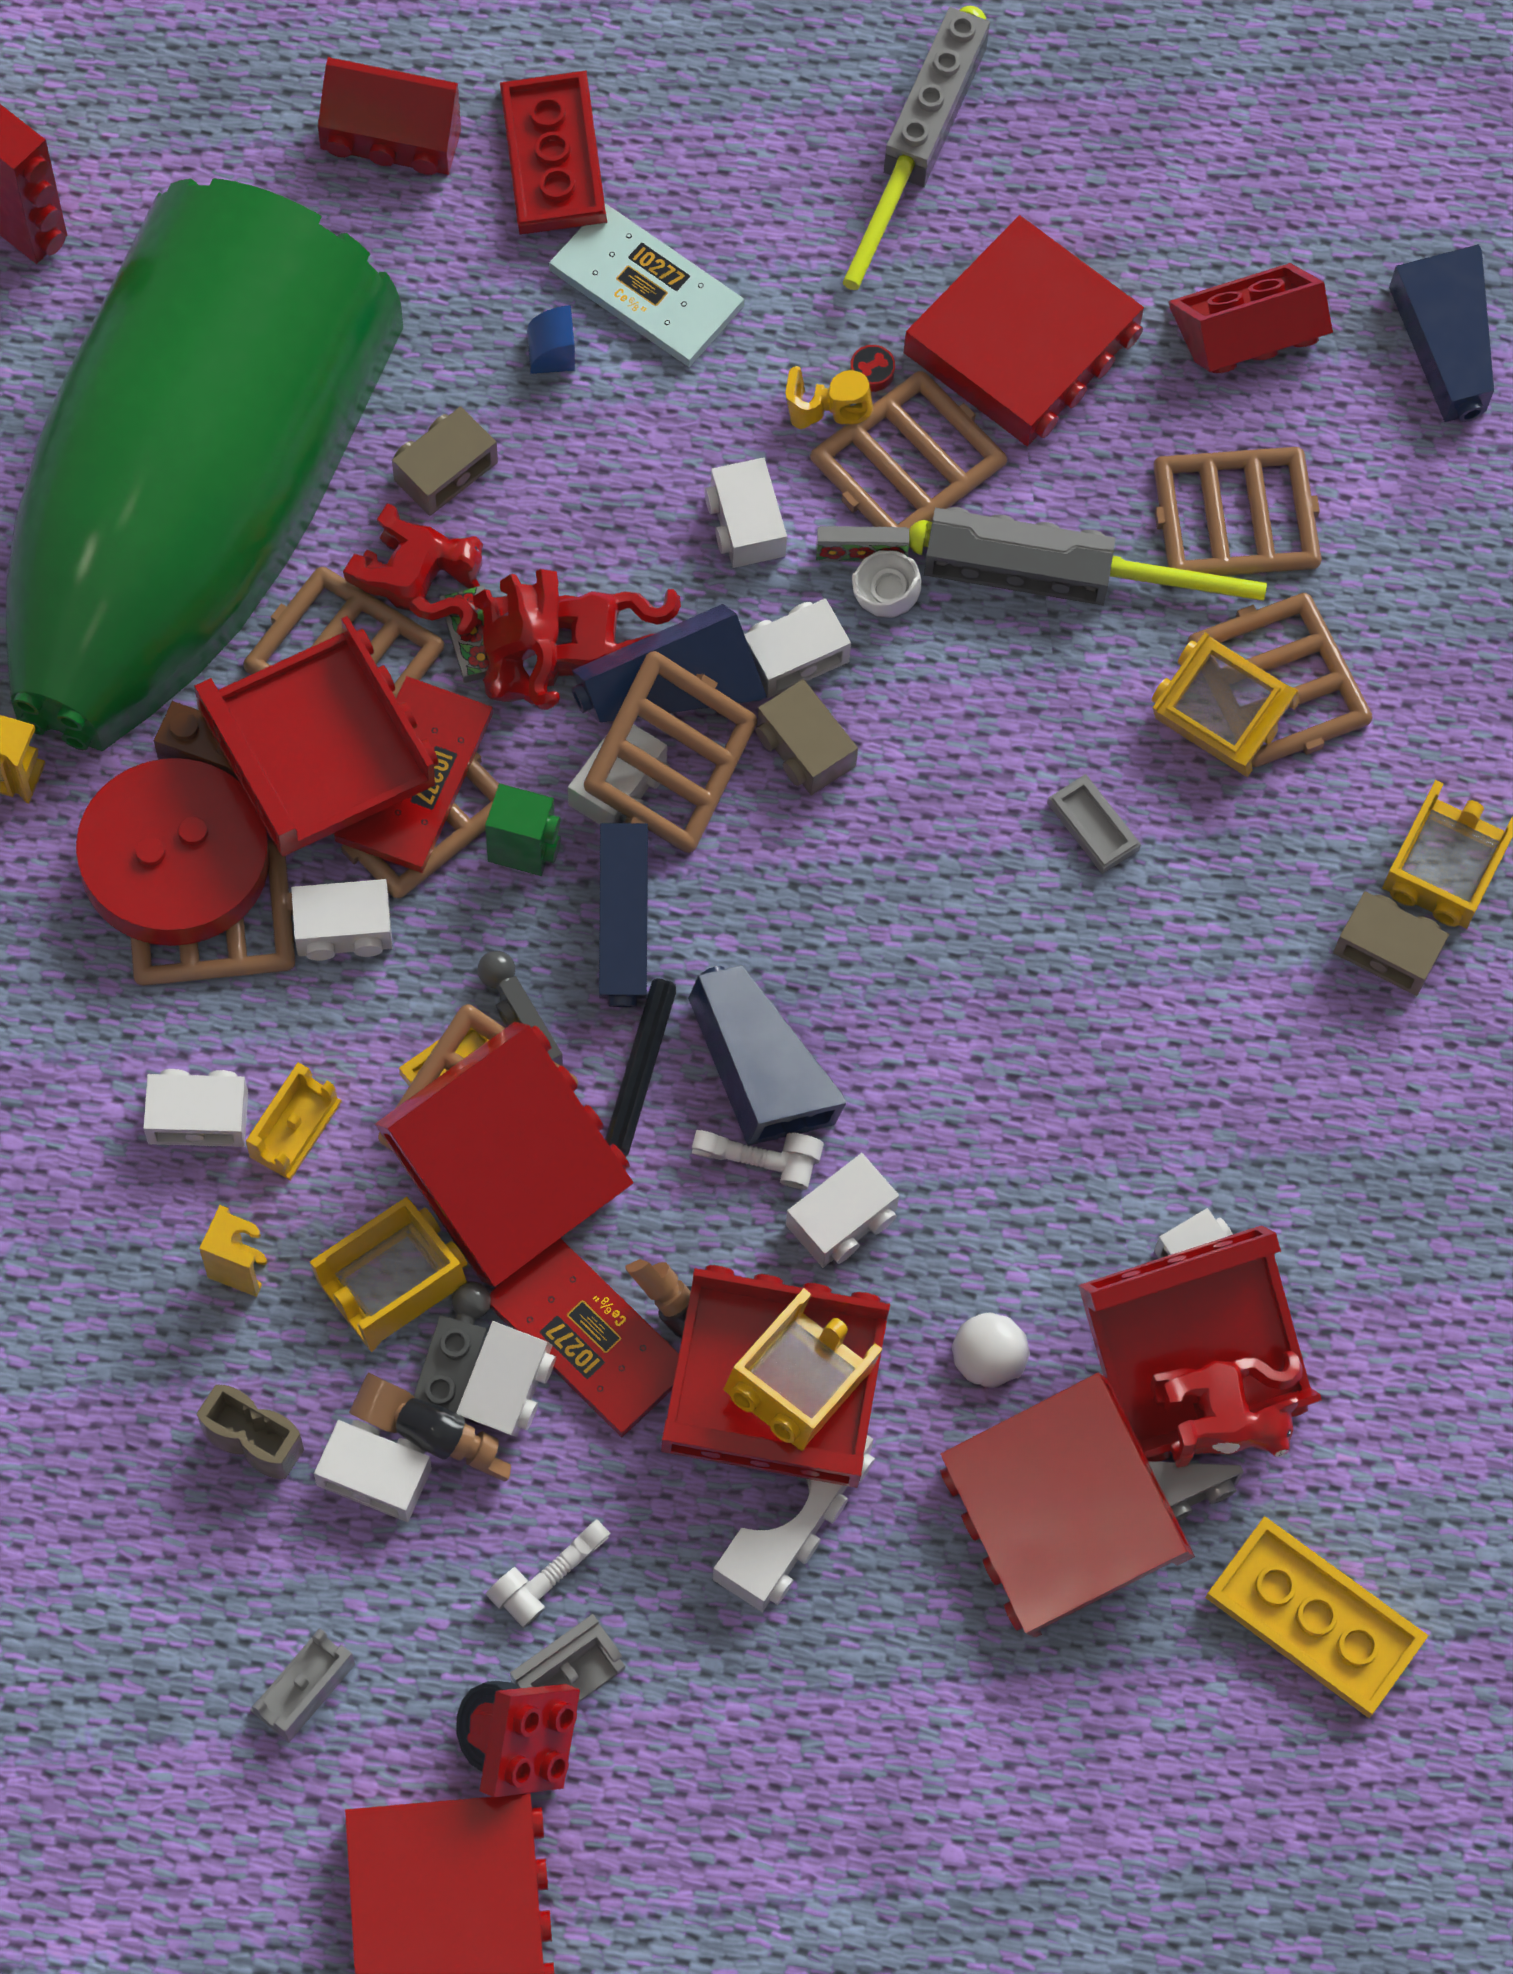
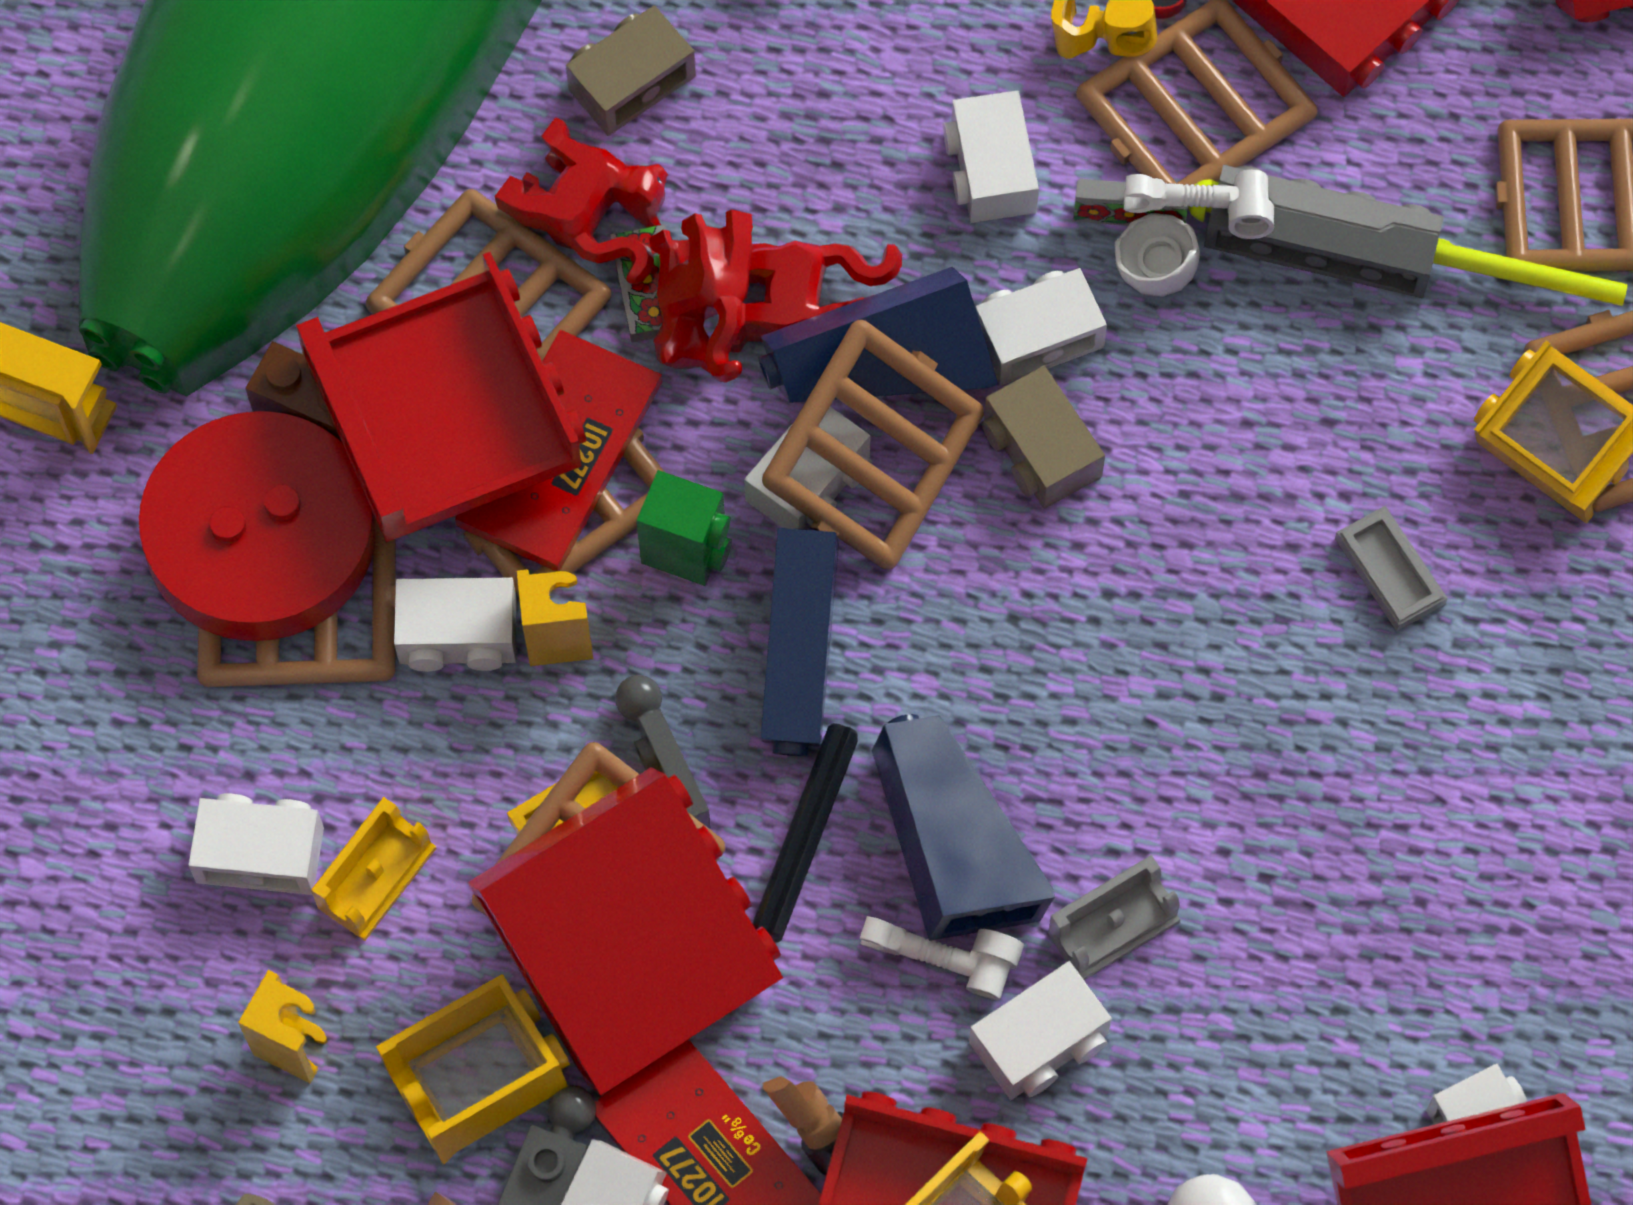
camera: 10 degrees right, 0 degrees up
(421, 918) = (550, 629): none -> yellow hinge
(894, 1117) = (1114, 918): none -> light grey hinge
(956, 536) = (1246, 202): none -> white brick

